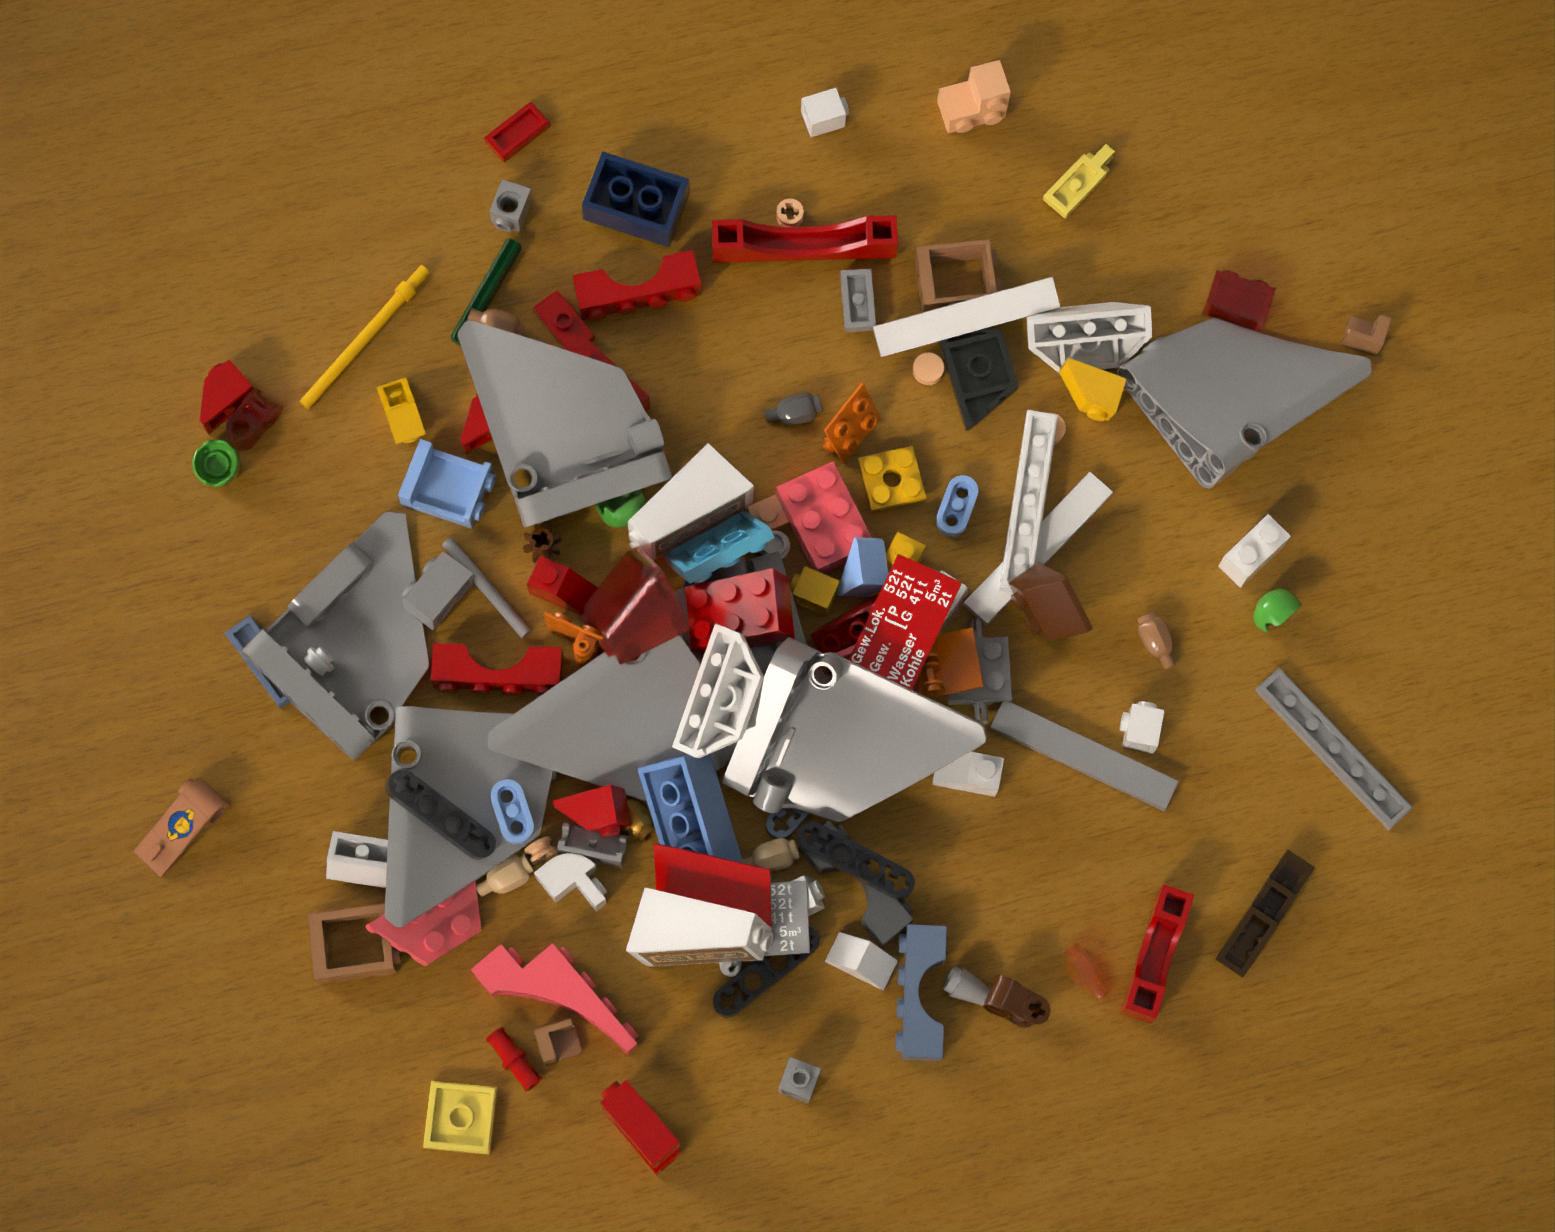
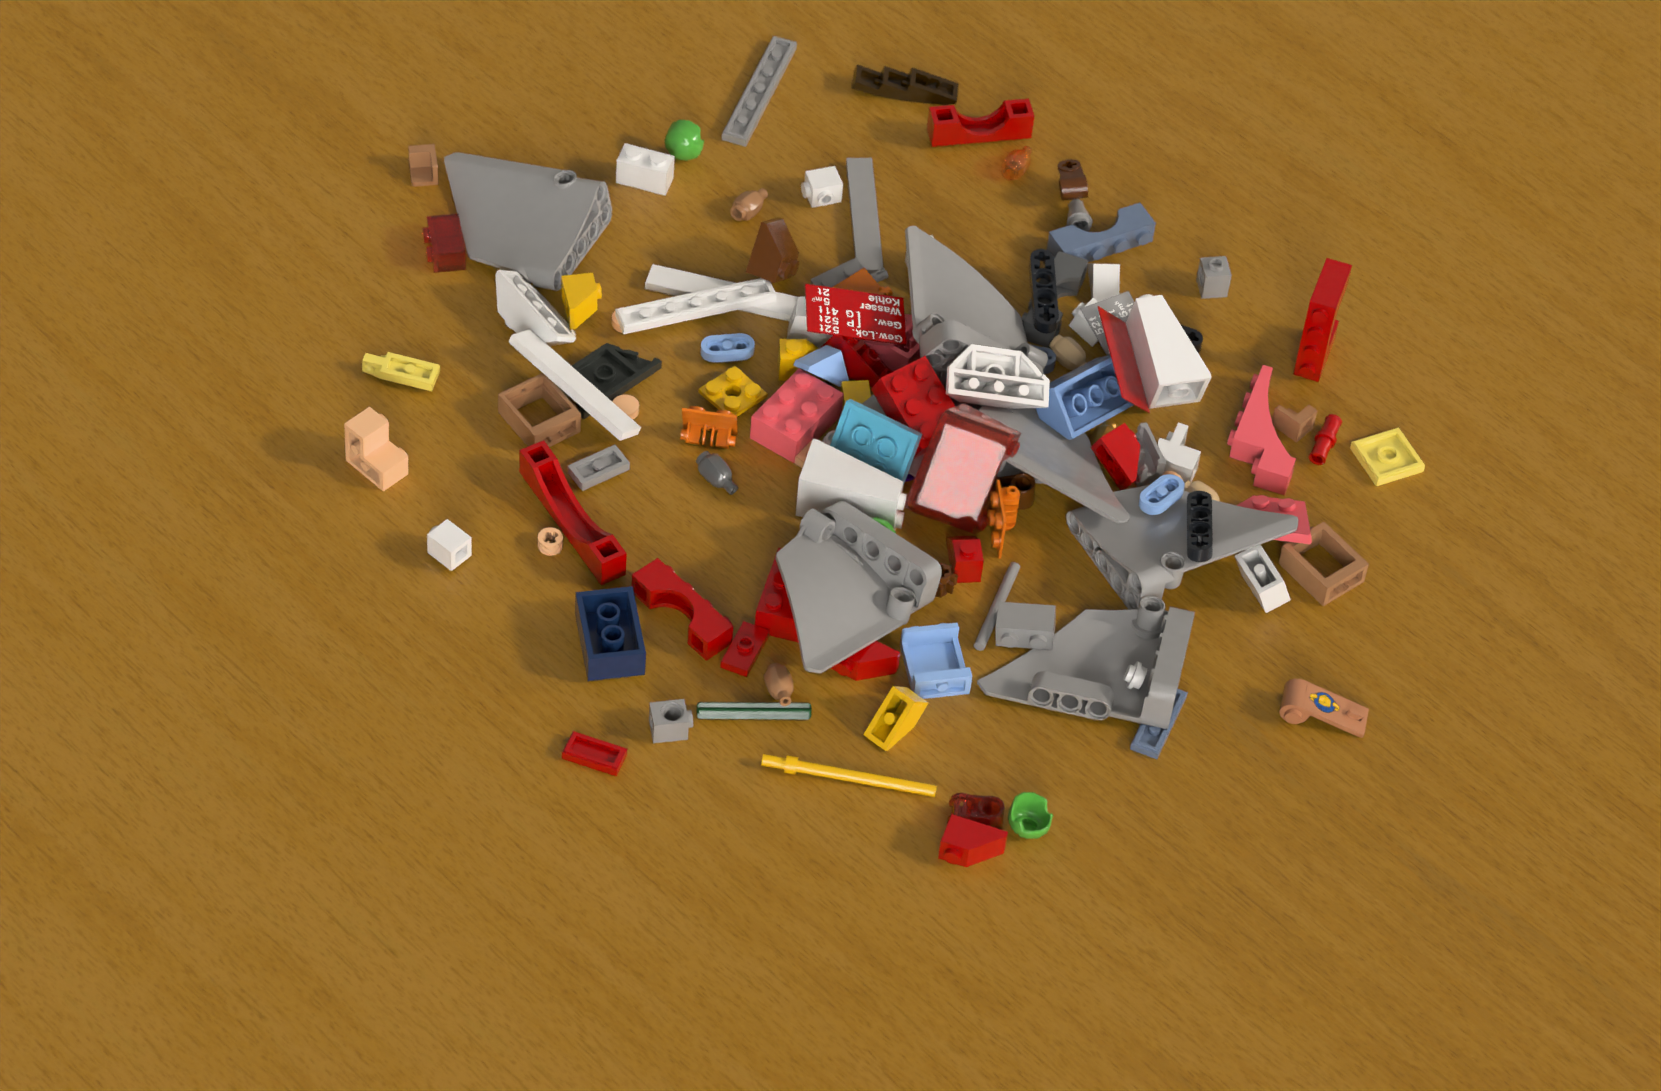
camera: 120 degrees left, 25 degrees down
(456, 670) = (1040, 541): red arch -> none

